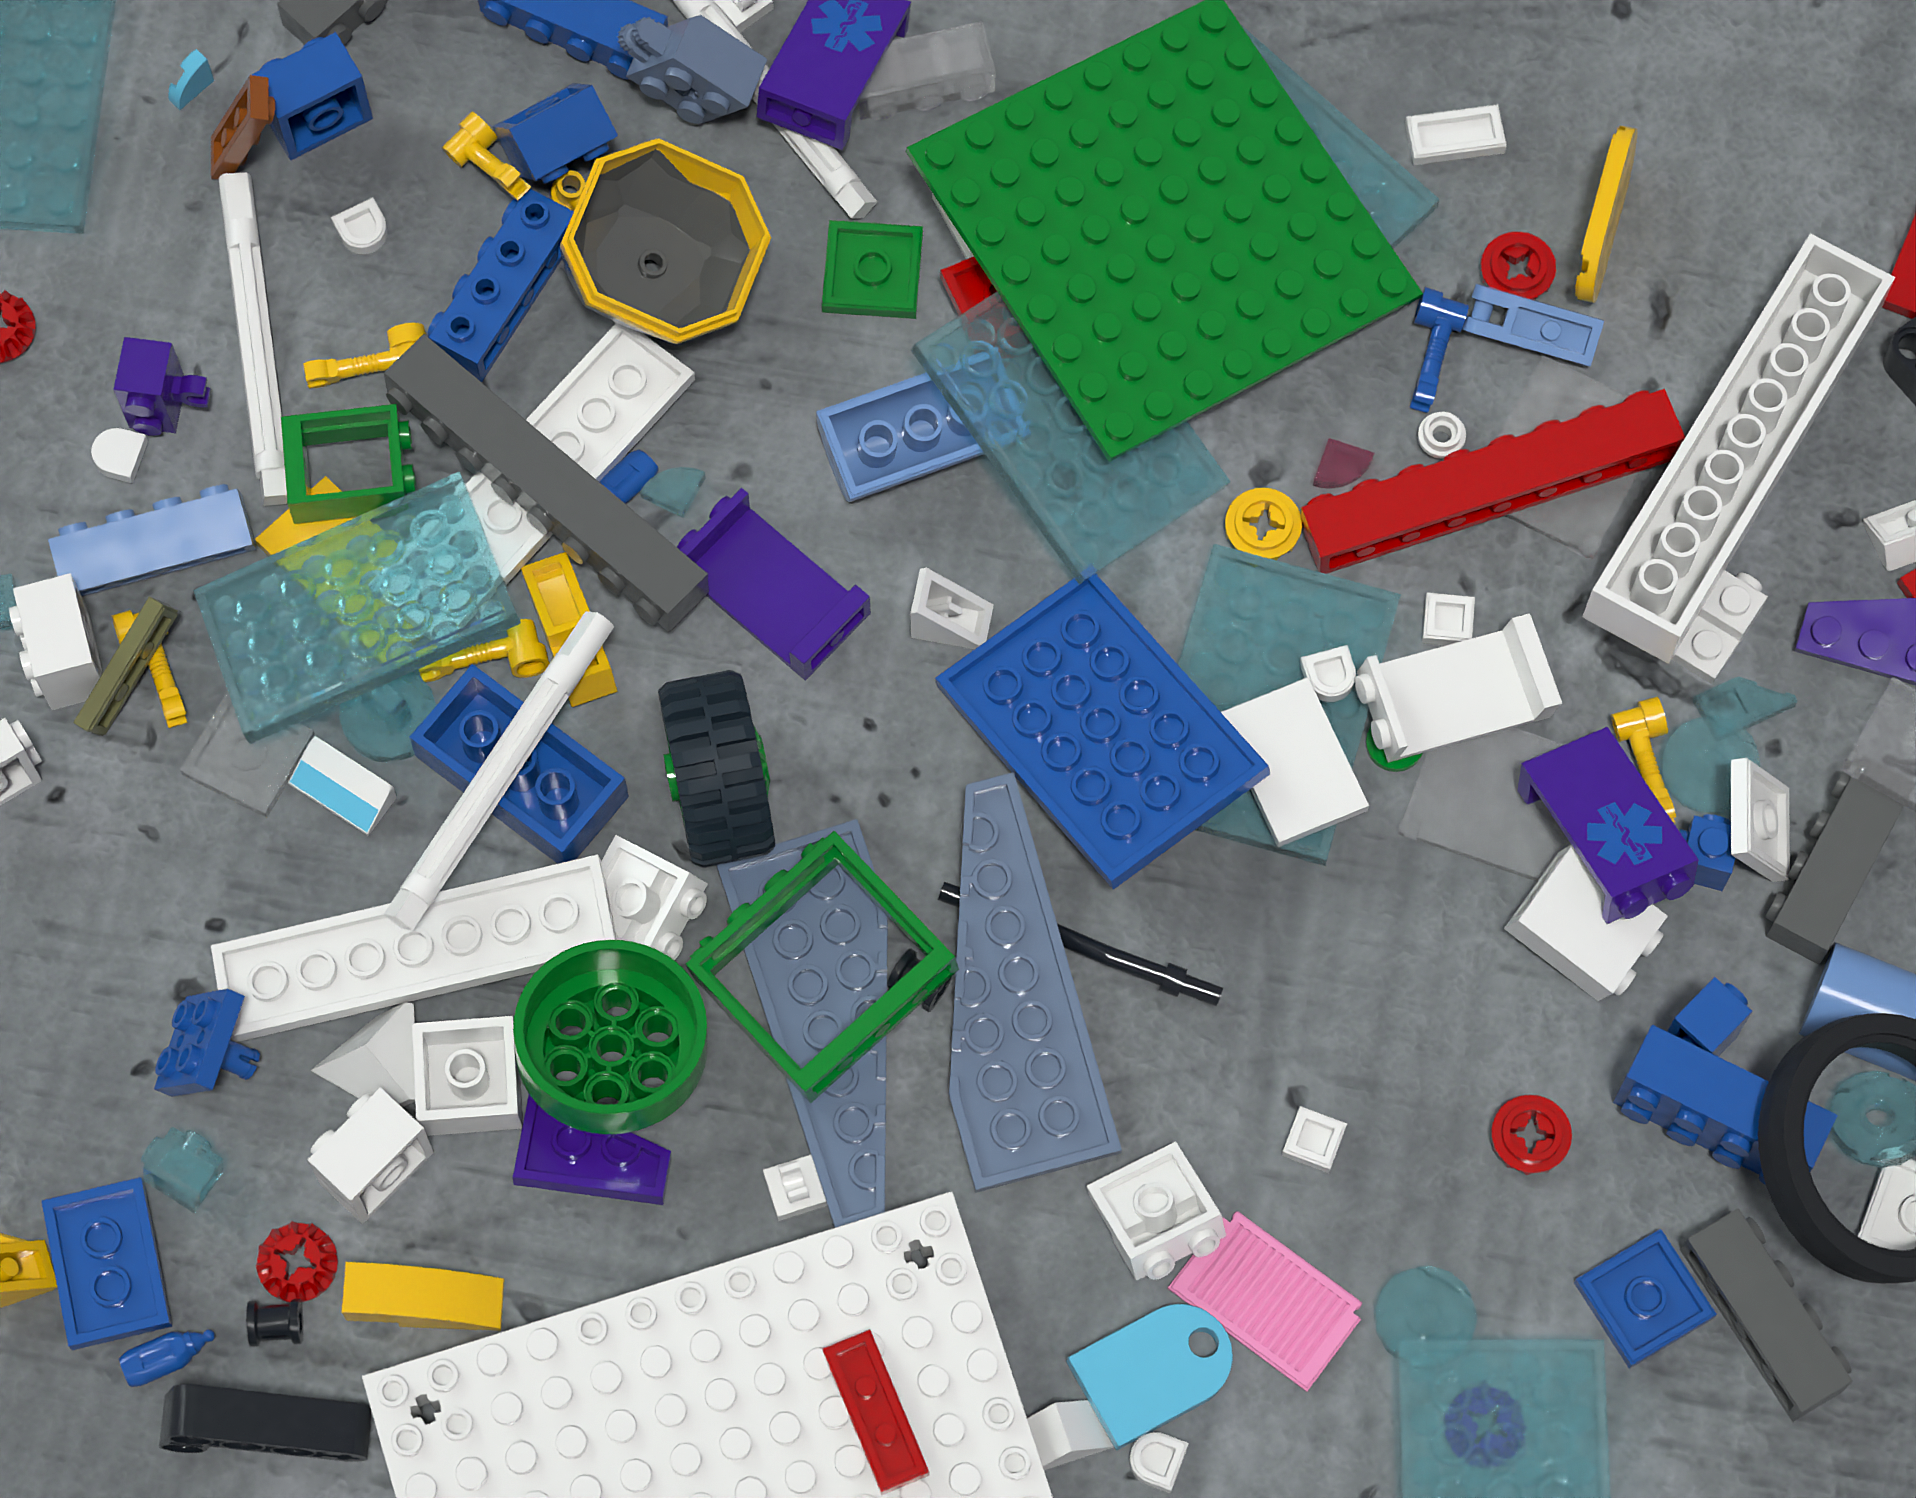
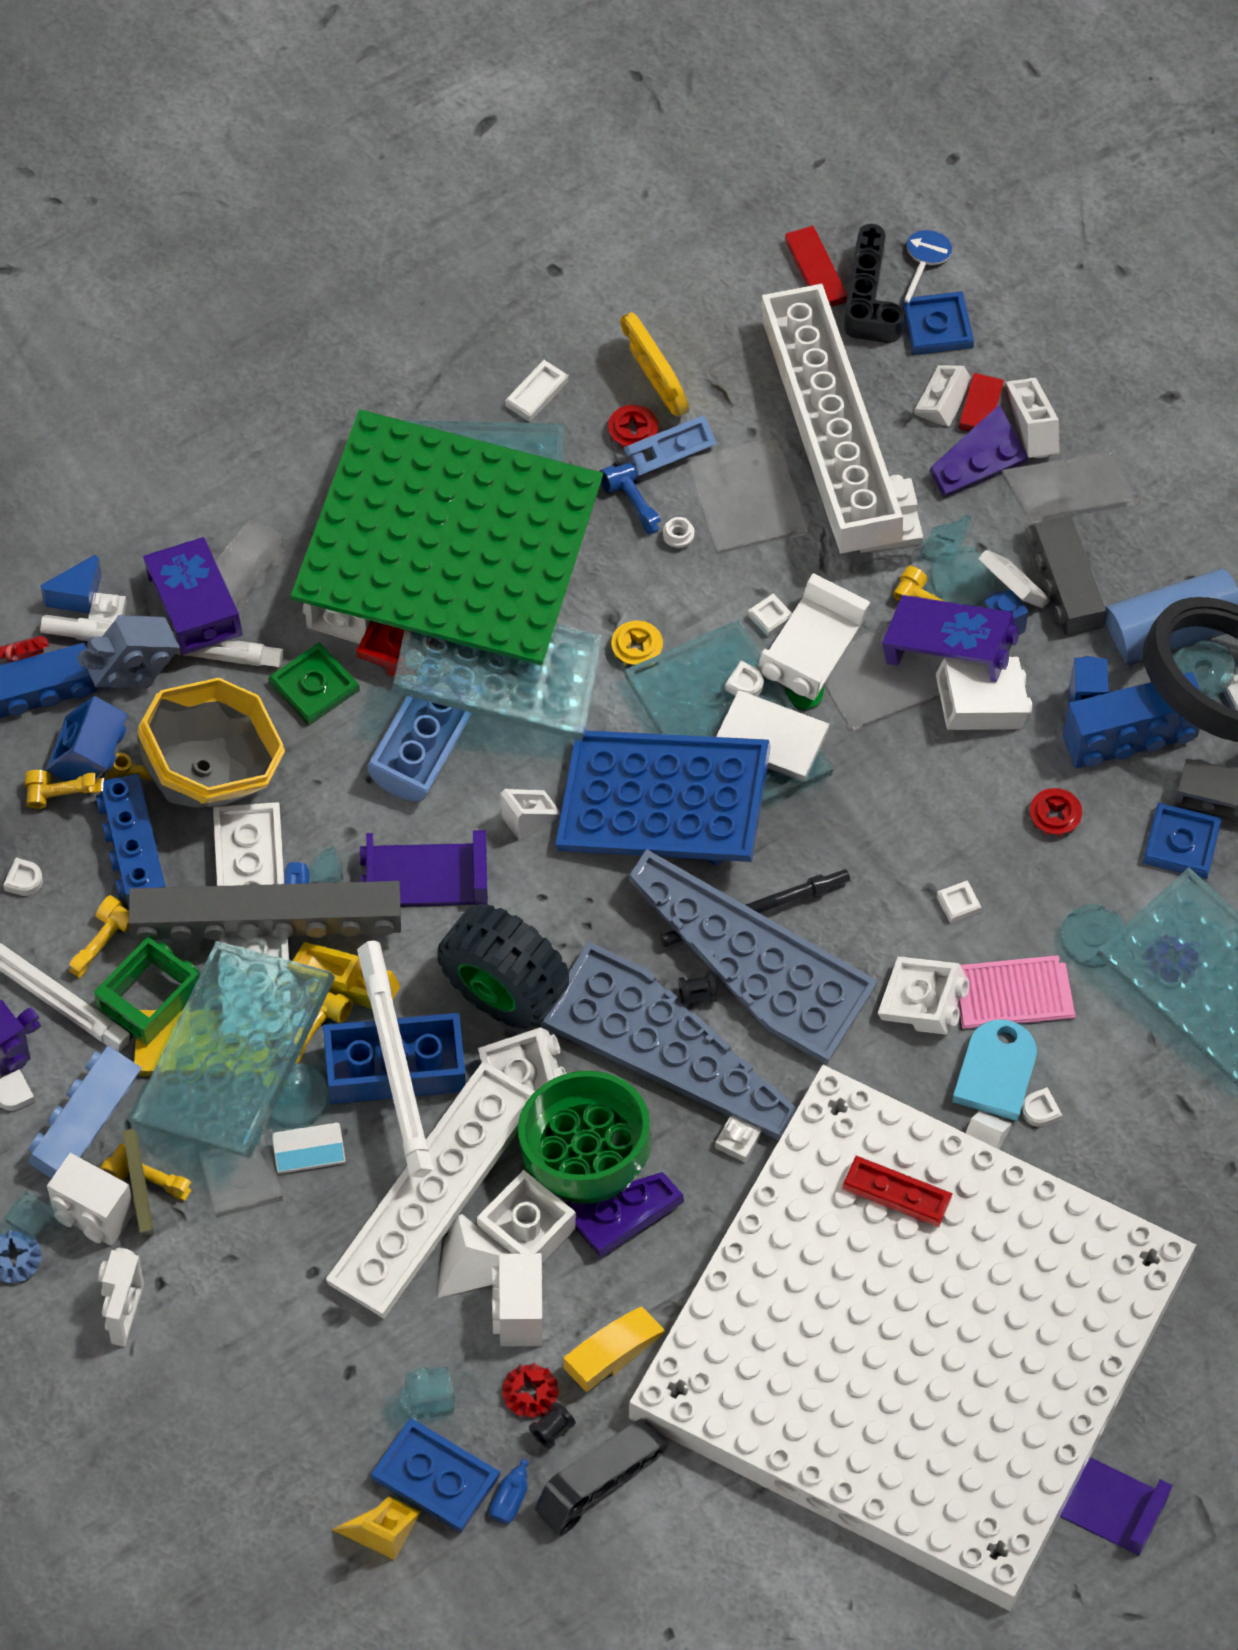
camera: 45 degrees left, 10 degrees down
(203, 1045) = (381, 1325): blue plate -> none
(879, 1019) = (650, 959): green window -> none
(1342, 465) = (643, 586): clear pink tile -> none
(1491, 480) = (727, 532): red brick -> none

